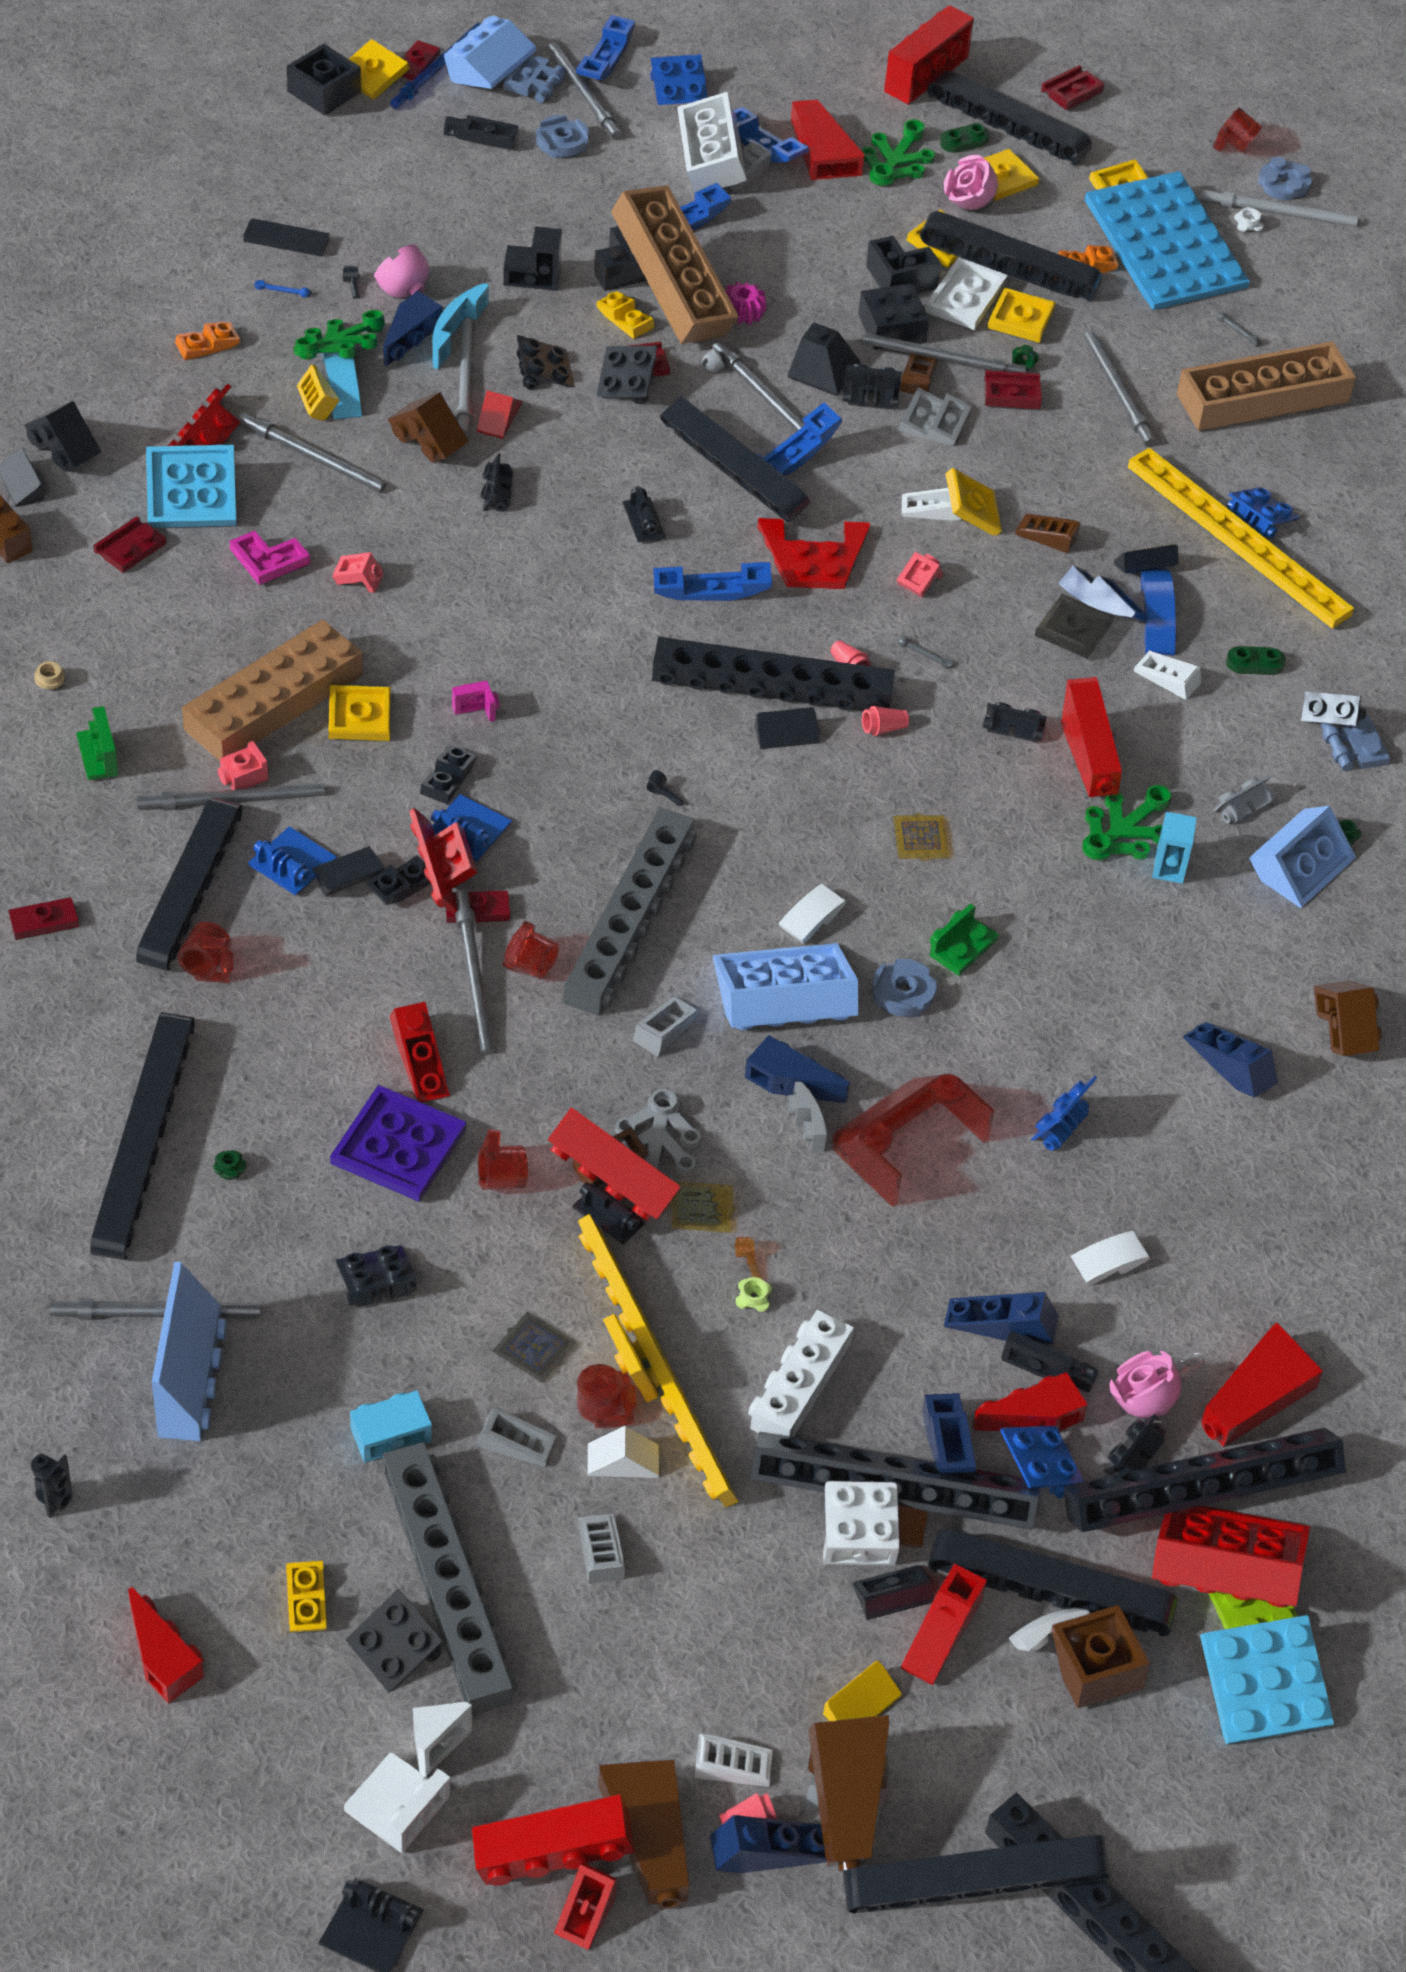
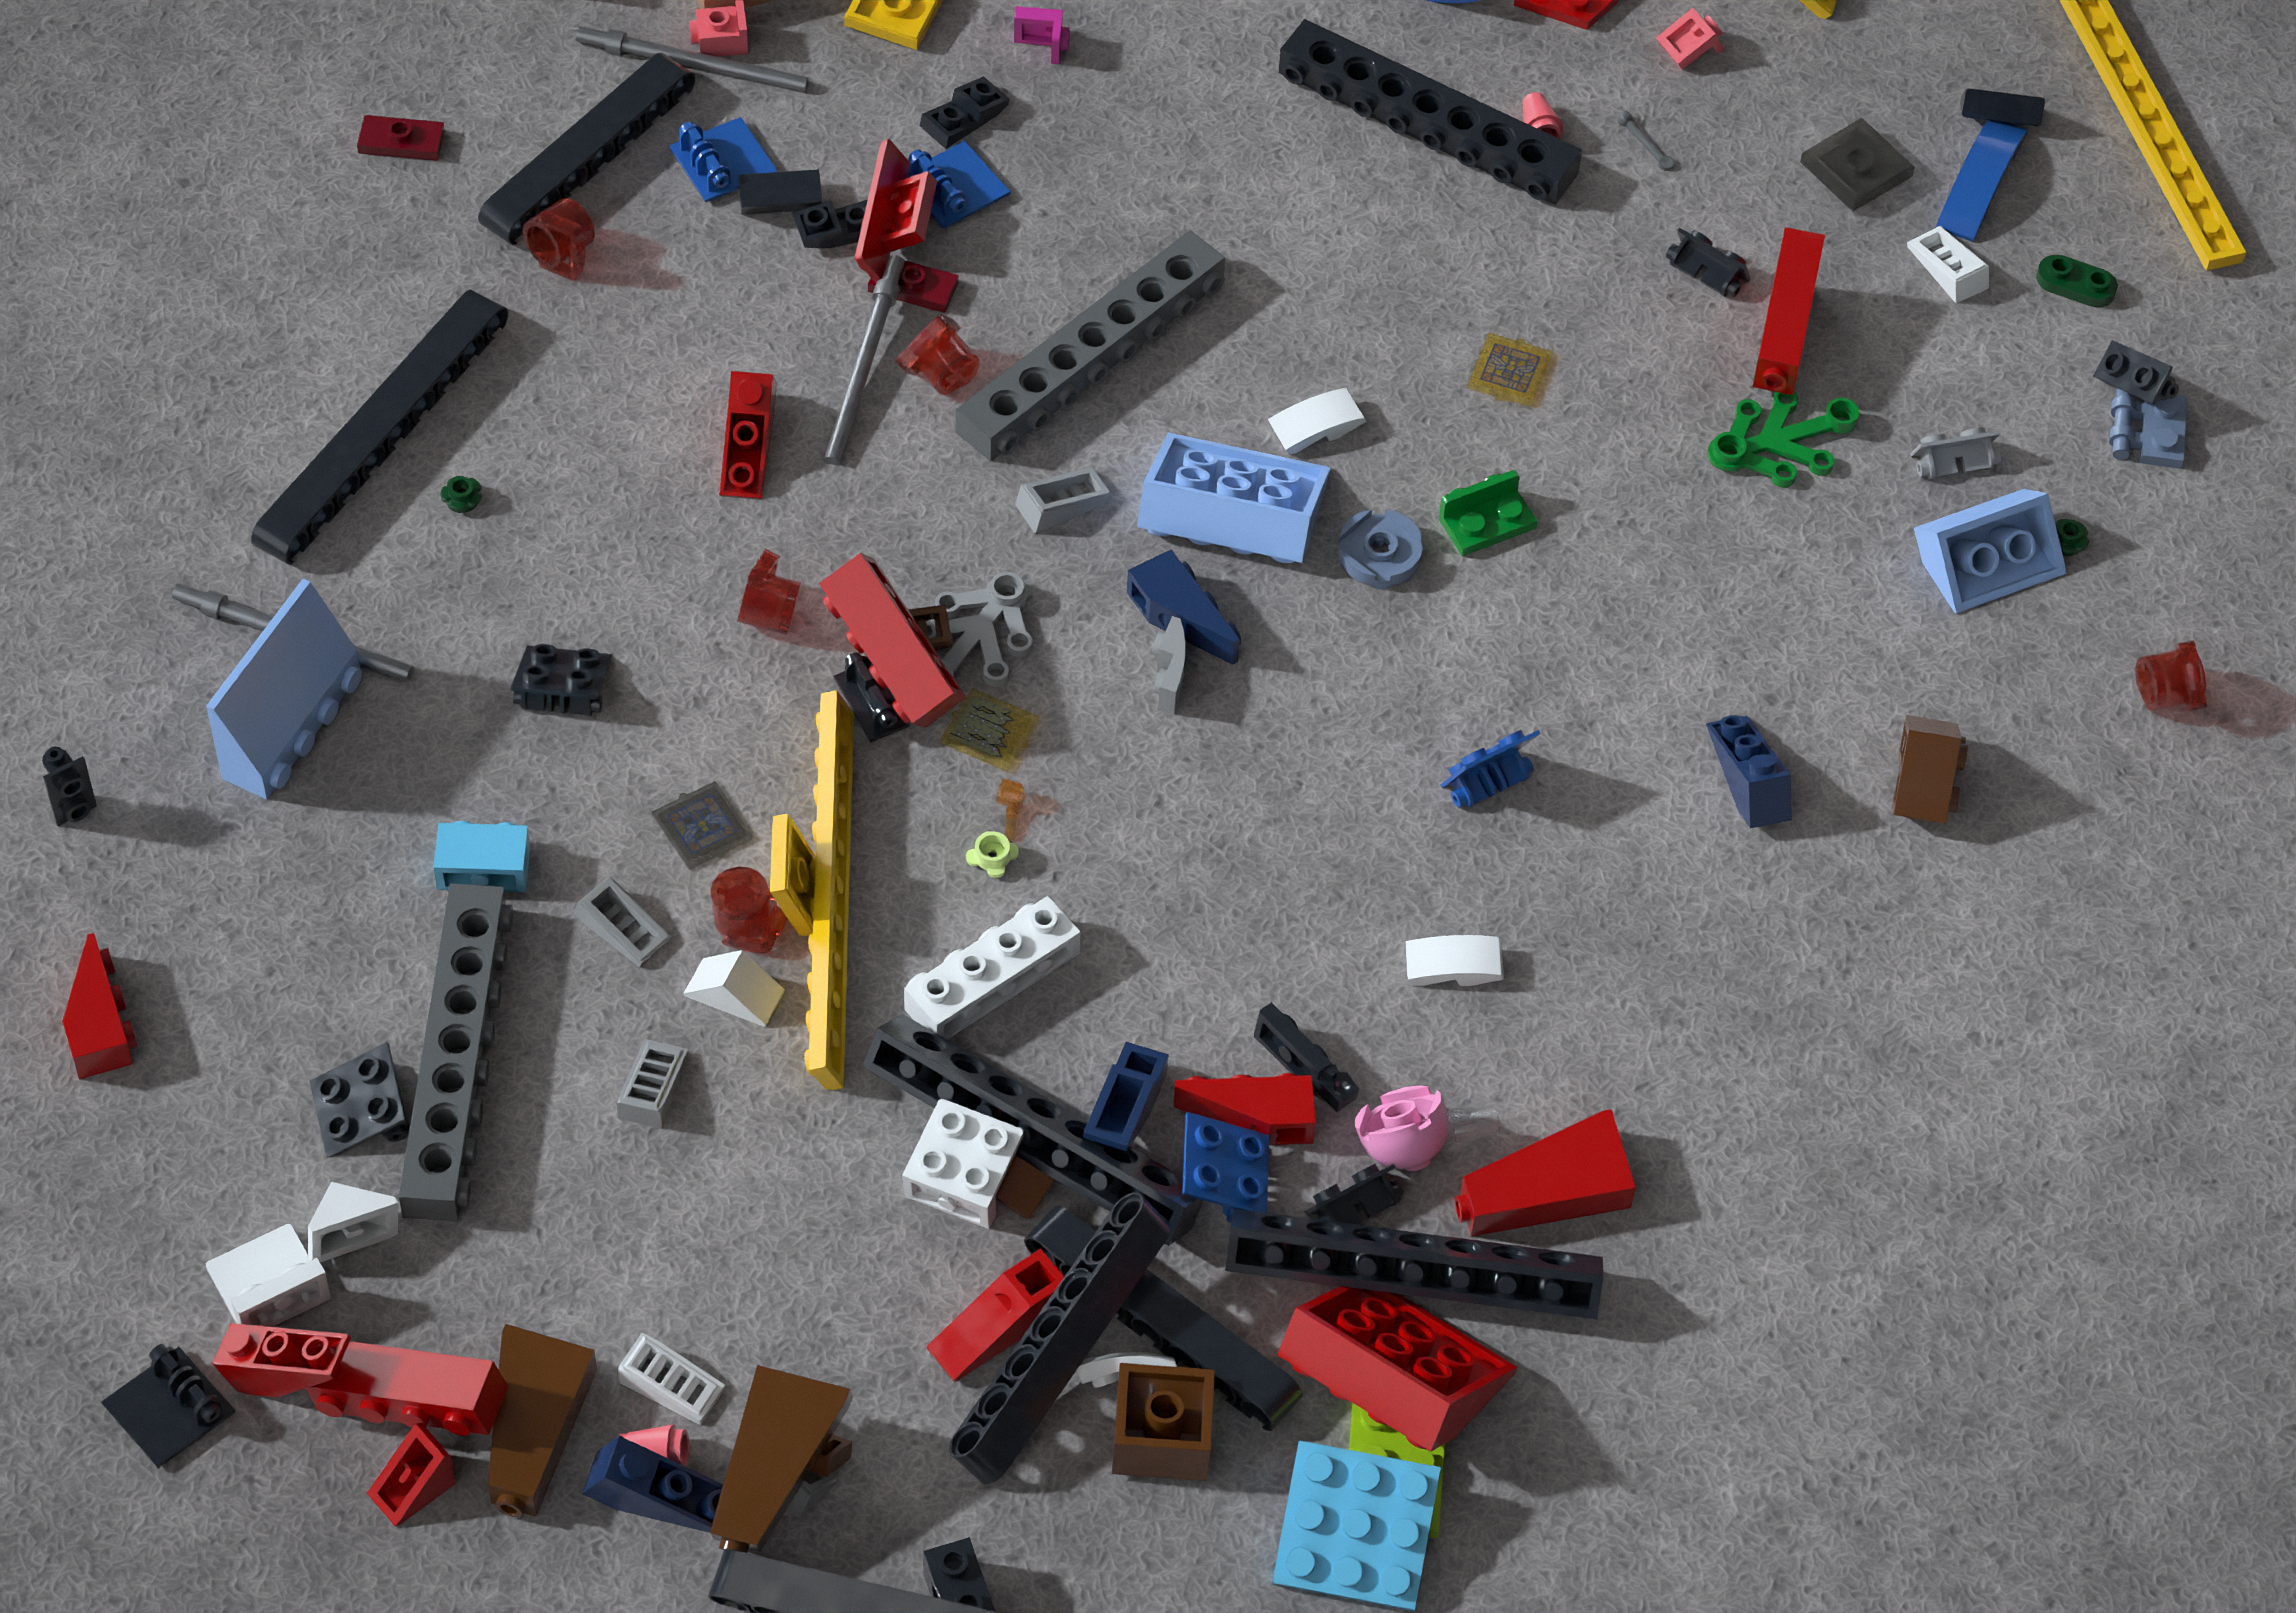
camera: 25 degrees right, 5 degrees up
(306, 1596) = (290, 1016): yellow slope -> none
(398, 1143) = (667, 533): dark purple plate -> none
(450, 1855) = (278, 1359): none -> red slope
(656, 785) = (1212, 200): black hand -> none
(786, 728) = (1412, 182): black slope -> none
(864, 1696) = (863, 1363): yellow slope -> none
(870, 1133) = (1231, 708): clear red windscreen -> none
(883, 720) = (1539, 209): coral cone -> none
(894, 1592) = (966, 1257): black slope -> none
(999, 1314) = (1294, 986): dark blue slope -> none
(1001, 1624) = (1059, 1338): none -> black beam
(1061, 539) = (1896, 47): reddish brown slope -> none
(1101, 594) = (1910, 133): slope -> none
(1174, 847) = (1817, 483): medium azure brick -> none
(1261, 510) = (2196, 88): blue hinge -> none

